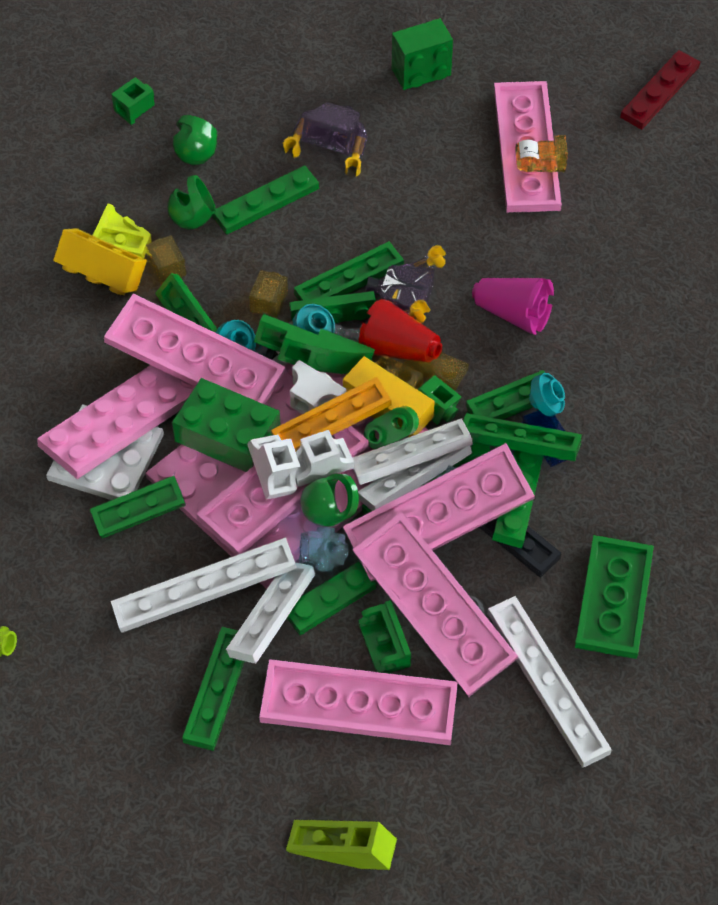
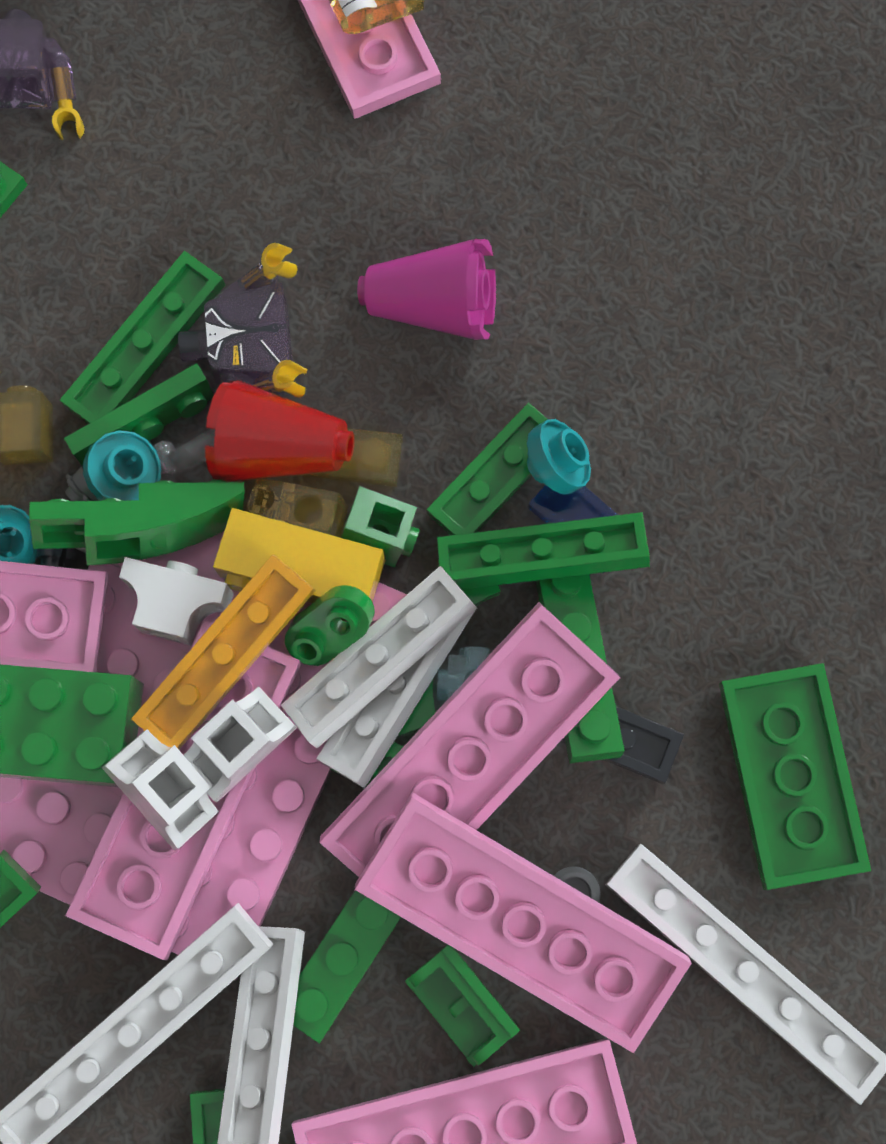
camera: 20 degrees left, 20 degrees up
(319, 500) = (269, 816): green helmet -> none
(323, 549) = (301, 887): clear light blue brick -> none

